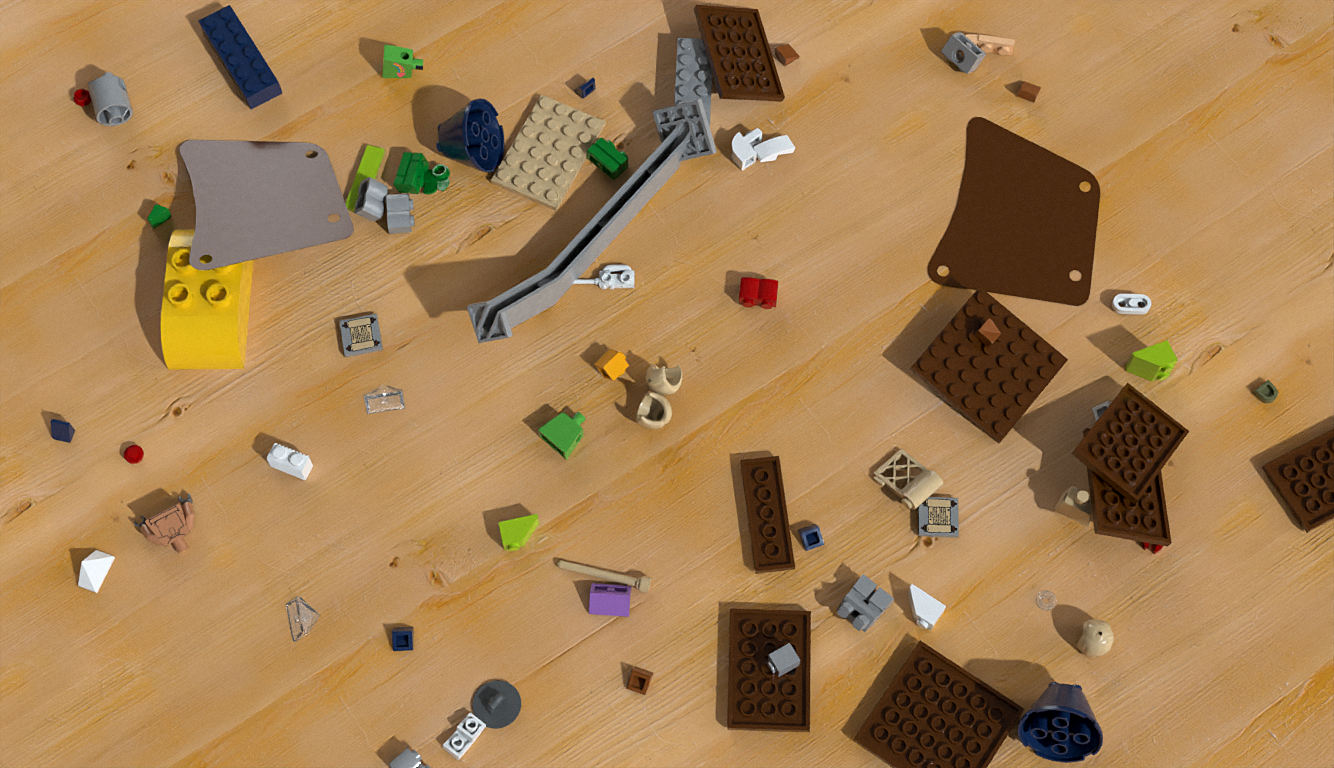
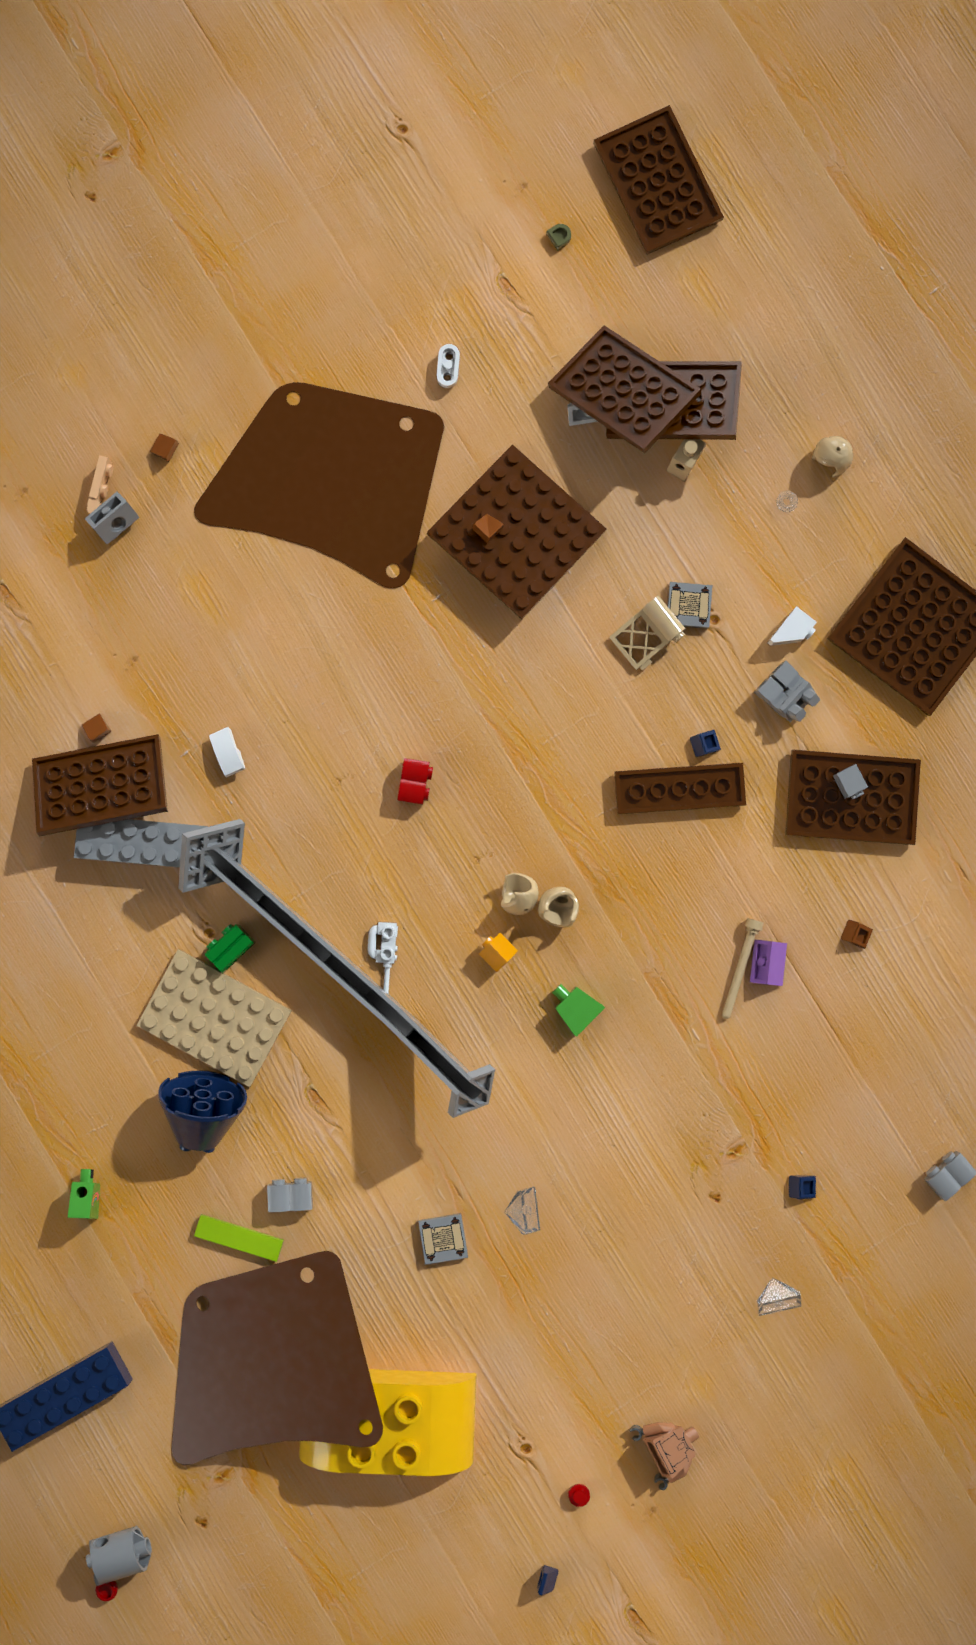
camera: 90 degrees left, 20 degrees up
(94, 570) = (713, 1529): white slope -> none
(158, 216) = (278, 1485): green slope -> none
(289, 461) = (598, 1316): white brick -> none
(371, 199) = (271, 1230): light grey brick -> none
(411, 173) = (237, 1182): green brick -> none
(436, 179) = (247, 1155): green plate -> none
(464, 736) = (911, 1120): white slope -> none
(497, 704) = (878, 1086): dark grey shield -> none
(517, 531) = (690, 1062): lime slope -> none
(586, 88) = (129, 972): dark blue slope -> none
(742, 148) = (225, 790): white brick -> none
(1061, 725) = (927, 499): dark blue cone -> none
(1152, 362) = (525, 348): lime slope -> none

